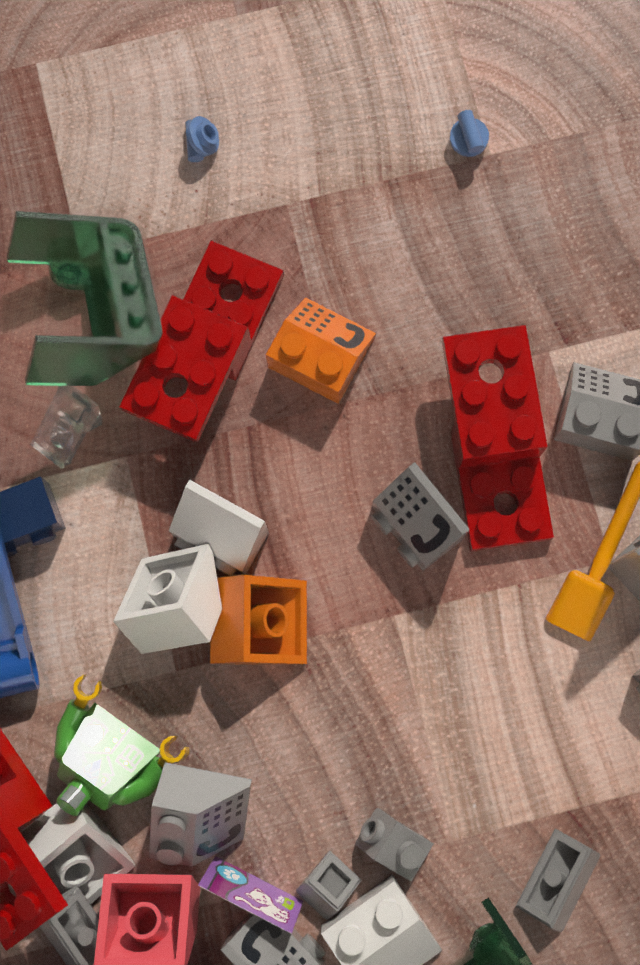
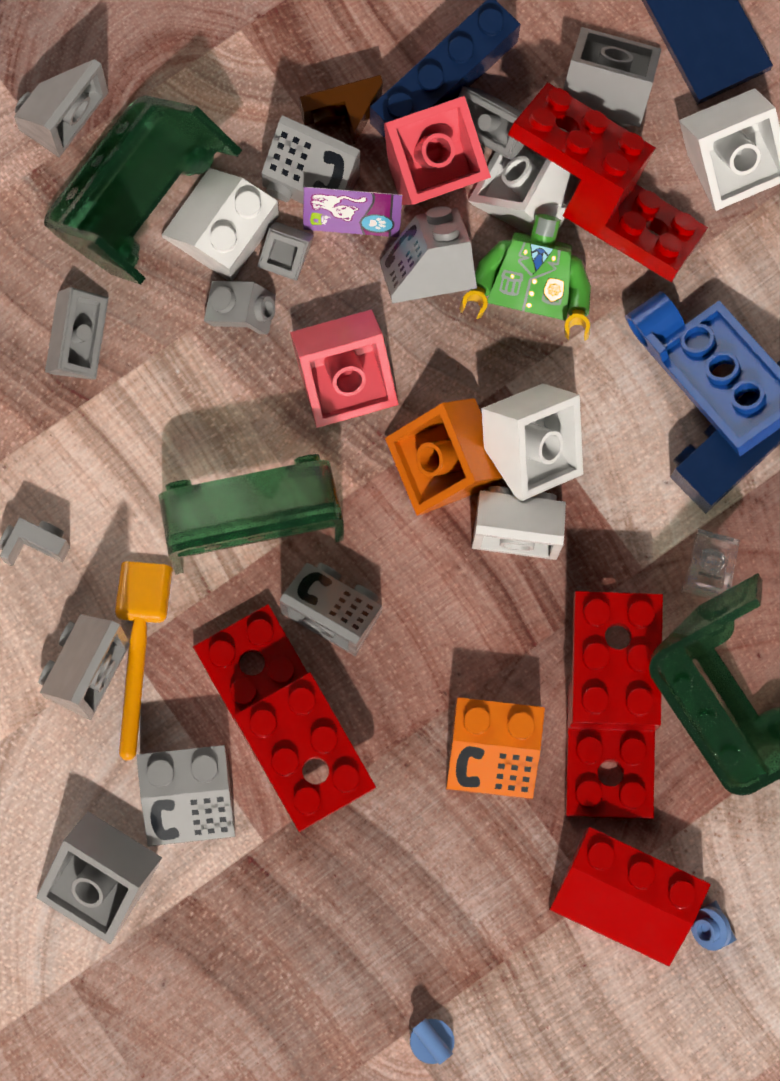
camera: 150 degrees right, 0 degrees up
(256, 186) = (629, 896): none -> red slope
(318, 743) = (344, 368): none -> coral slope
(465, 625) = (250, 508): none -> clear green windscreen

